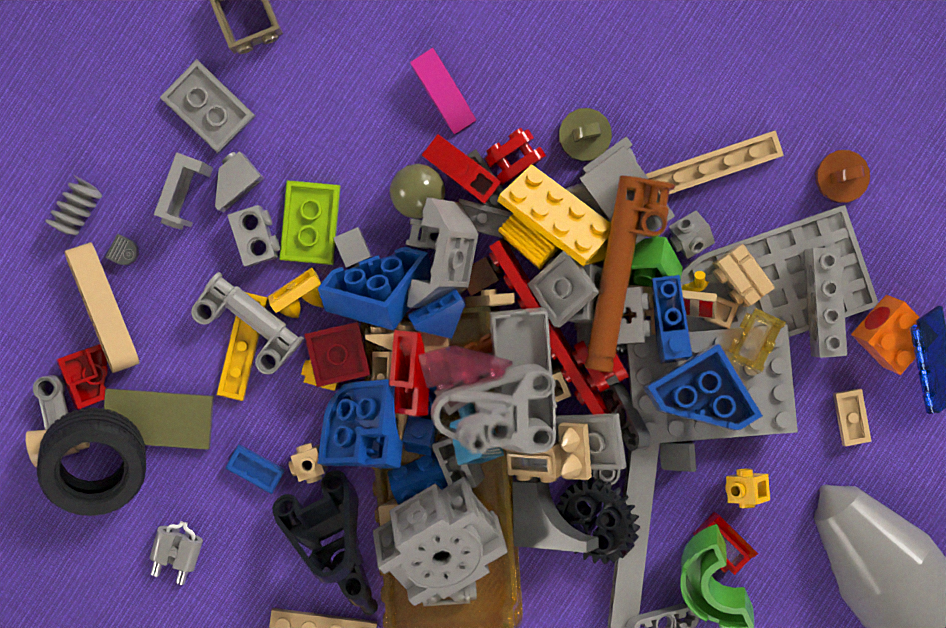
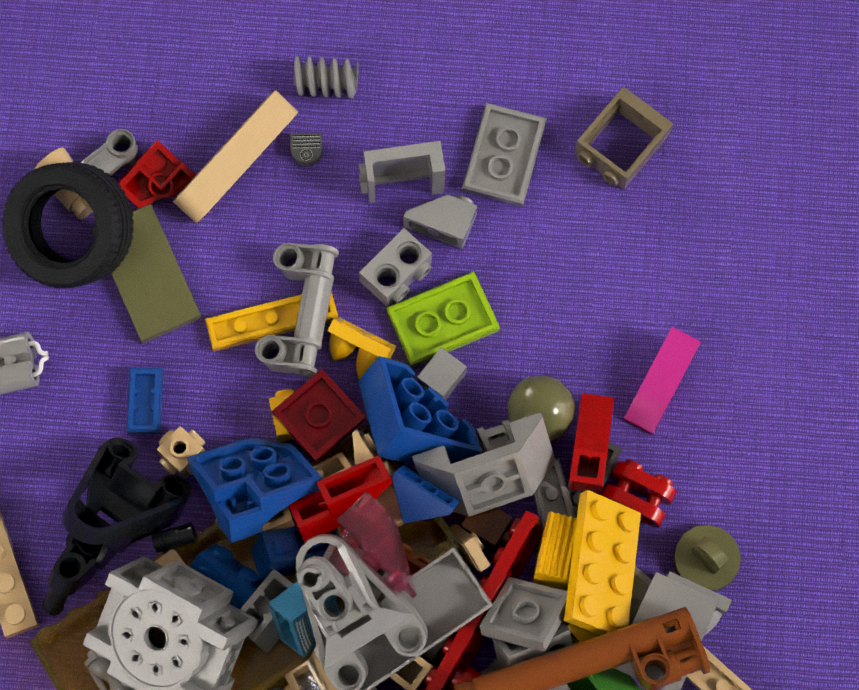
camera: 60 degrees right, 15 degrees down
(368, 509) = (174, 537): none -> black pin

